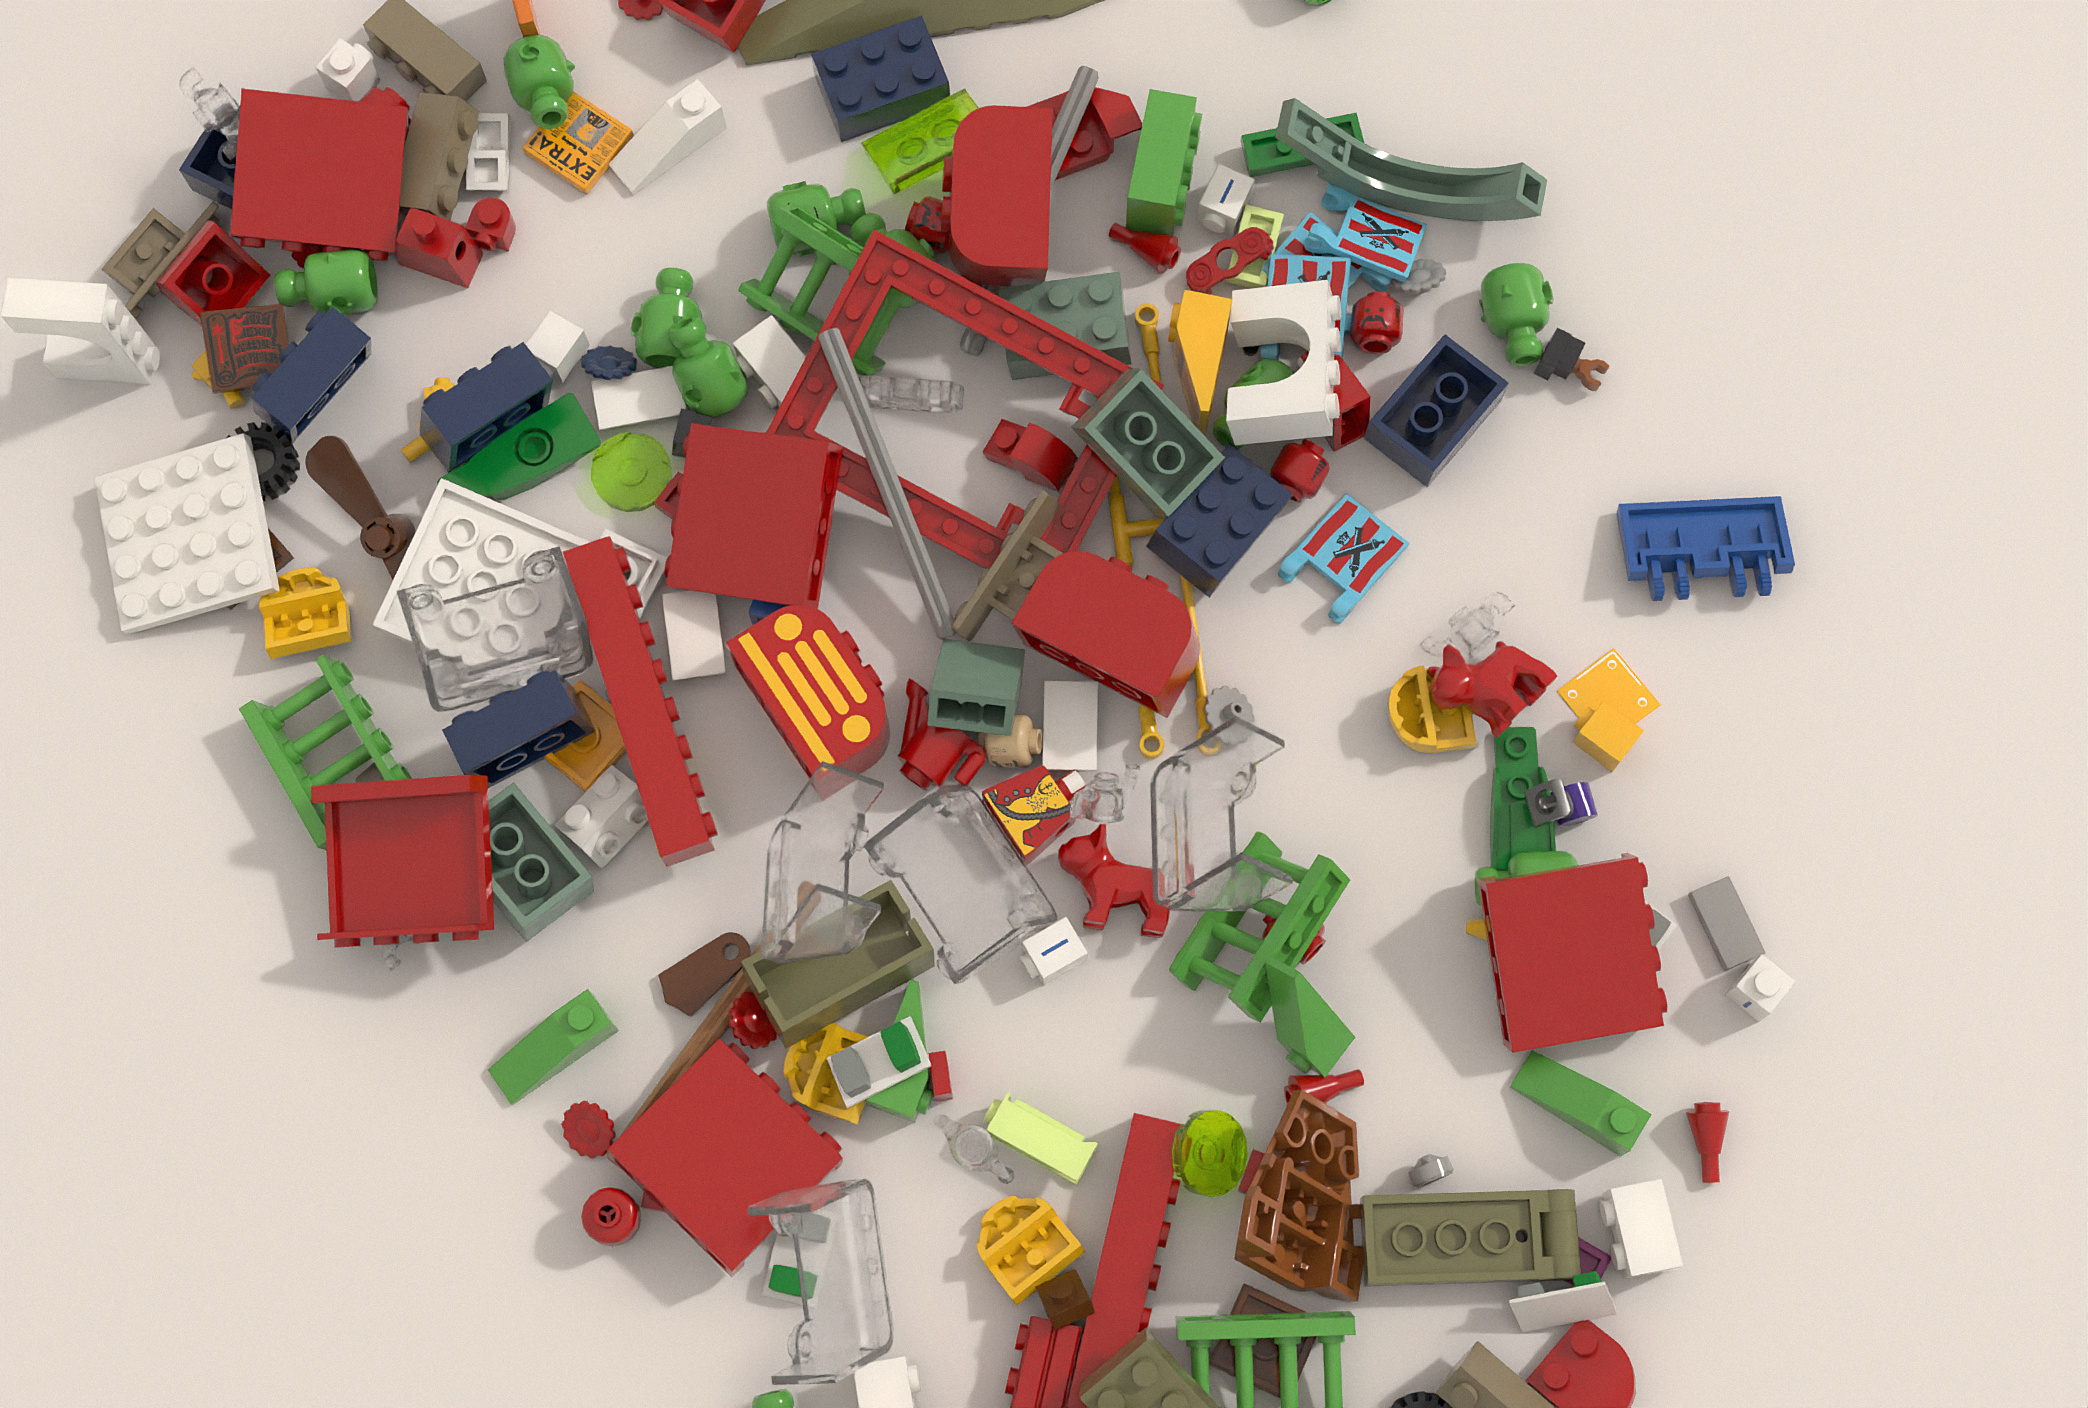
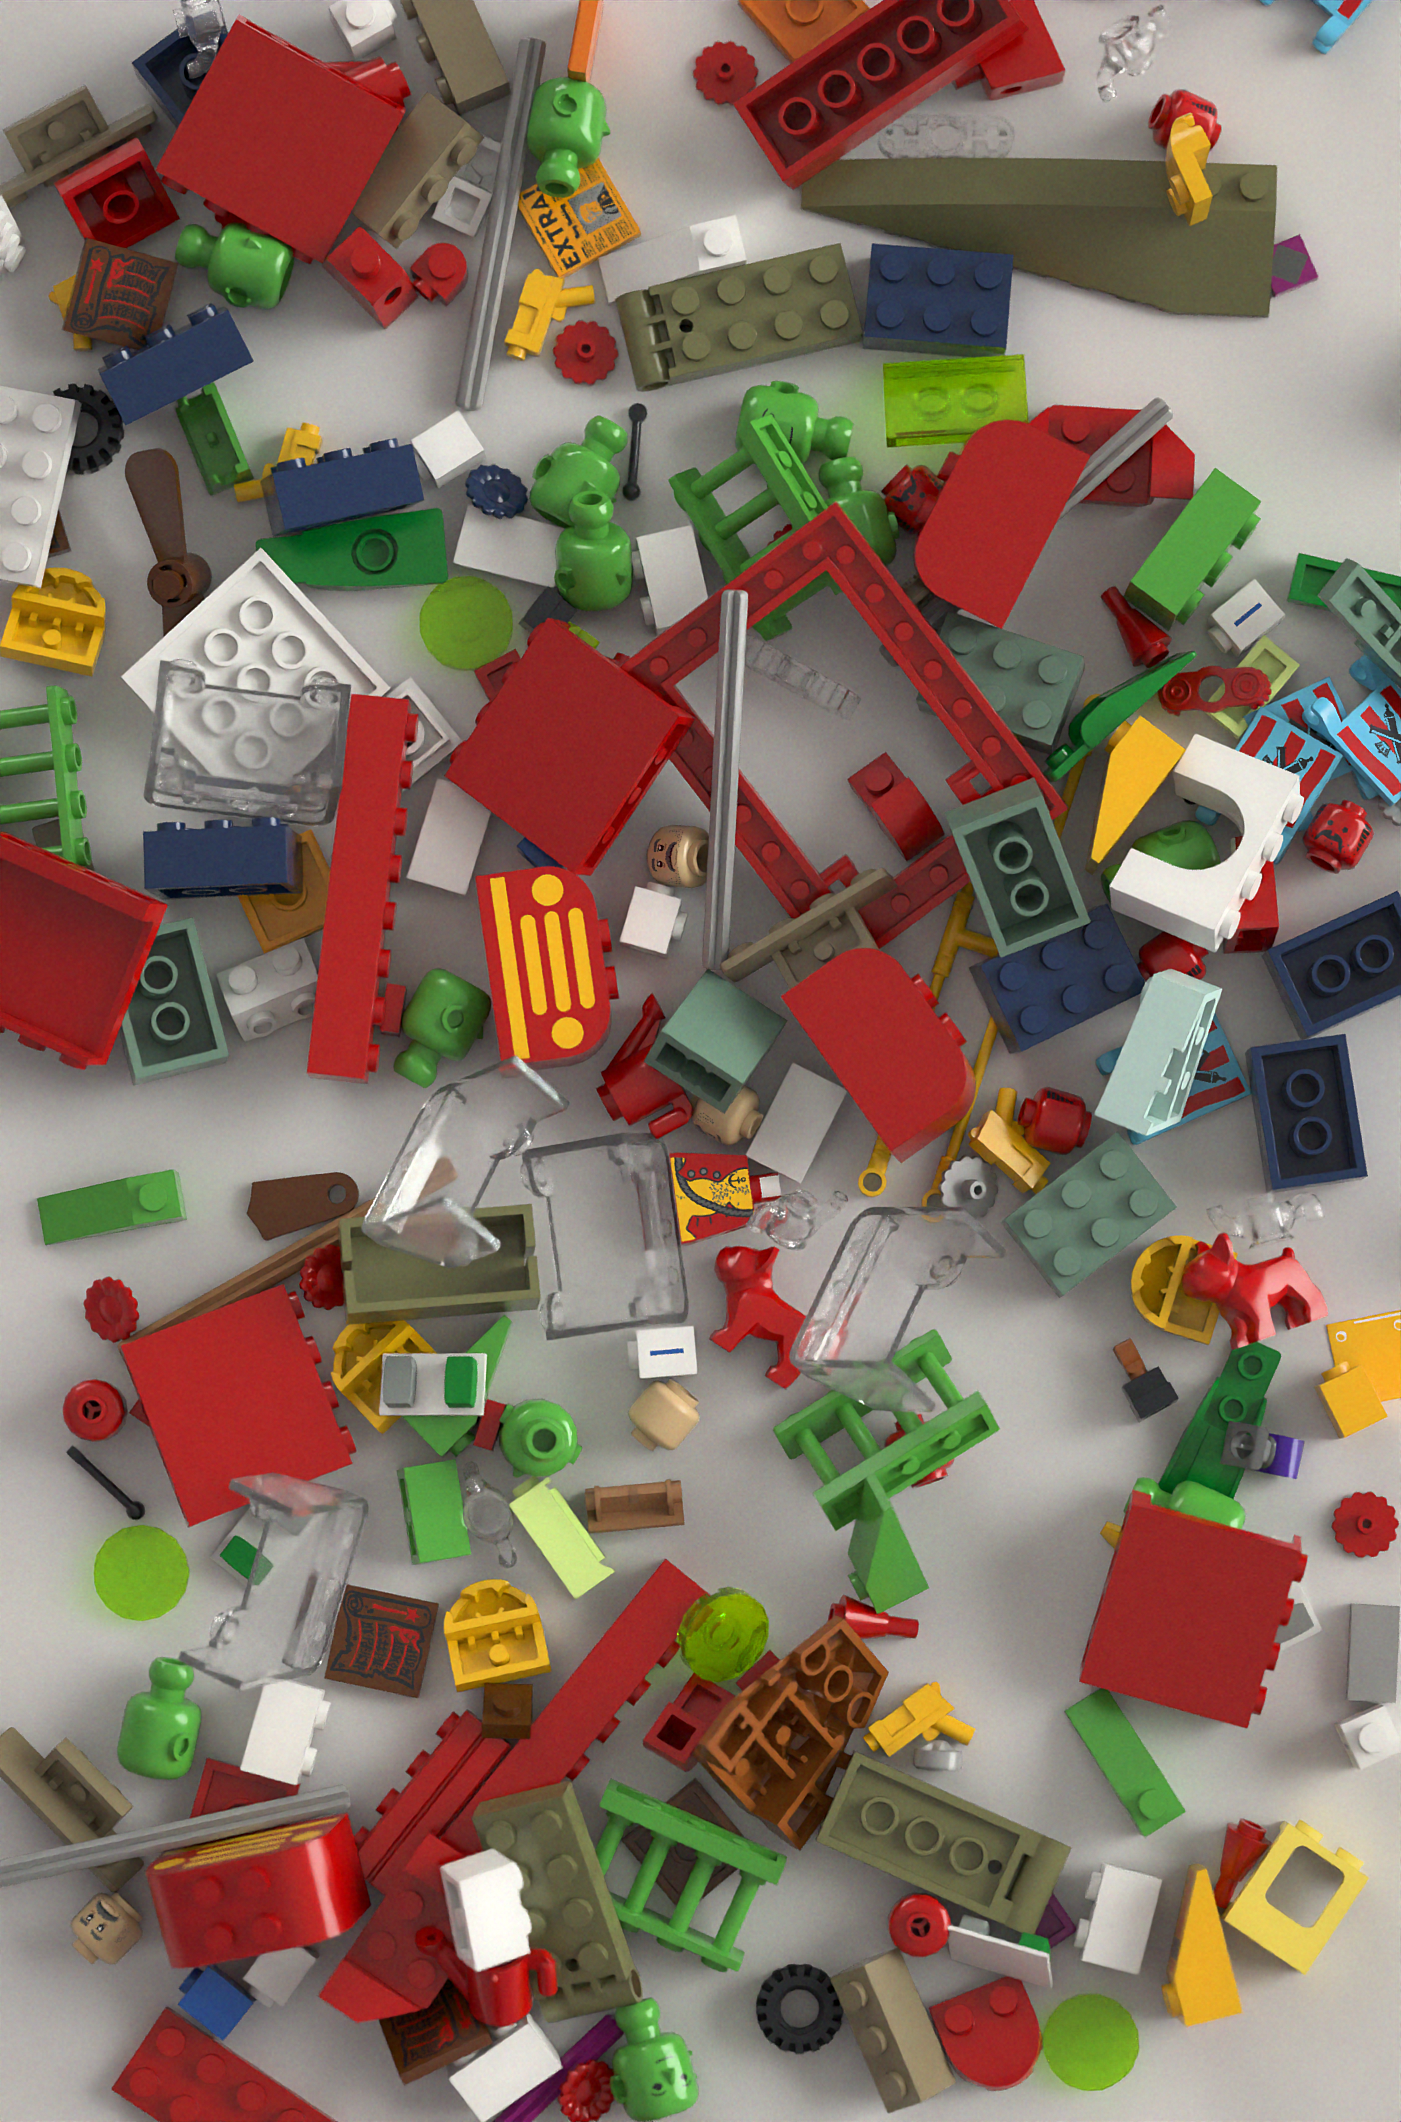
camera: 25 degrees right, 10 degrees up
(369, 422) = (213, 440): none -> bright green hinge
(521, 170) = (500, 225): none -> light grey axle
(578, 215) = (539, 304): none -> yellow piece
(630, 236) = (585, 352): none -> red piece
(681, 1285) = (134, 1509): none -> black hinge
(692, 263) = (637, 415): none -> black hinge
(710, 785) = (394, 1009): none -> red tile
(710, 1334) = (141, 1572): none -> clear neon green tile
(736, 156) = (739, 317): none -> olive hinge
(752, 776) = (441, 1021): none -> bright green piece
(880, 564) = (679, 856): none -> tan head
(883, 624) = (653, 920): none -> white brick
(927, 1168) = (433, 1512): none -> bright green hinge
(934, 1295) = (381, 1641): none -> reddish brown tile
(984, 1065) = (538, 1438): none -> bright green piece
(1076, 1001) = (663, 1415): none -> tan head
(1088, 1085) = (634, 1506): none -> medium nougat hinge
(1158, 306) = (1109, 711): none -> green piece
(1216, 1238) = (686, 1722): none -> red brick
(1236, 666) = (1001, 1143): none -> yellow piece
(1270, 630) = (1055, 1121): none -> red head
(1327, 533) = (1160, 1053): none -> light aqua wedge
(1332, 688) = (1088, 1214): none -> sand green brick
(1399, 1142) = (920, 1713): none -> yellow piece
(1447, 802) = (1147, 1390): none -> black piece
(1460, 533) = (1306, 1113): none -> dark blue brick
(1470, 1319) = (912, 1907): none -> red head
(1667, 827) = (1365, 1524): none -> red piece
(1669, 1344) = (1090, 2041): none -> clear neon green tile
(1722, 1227) = (1198, 1963): none -> yellow slope
(1763, 1177) = (1275, 1930): none -> light yellow window

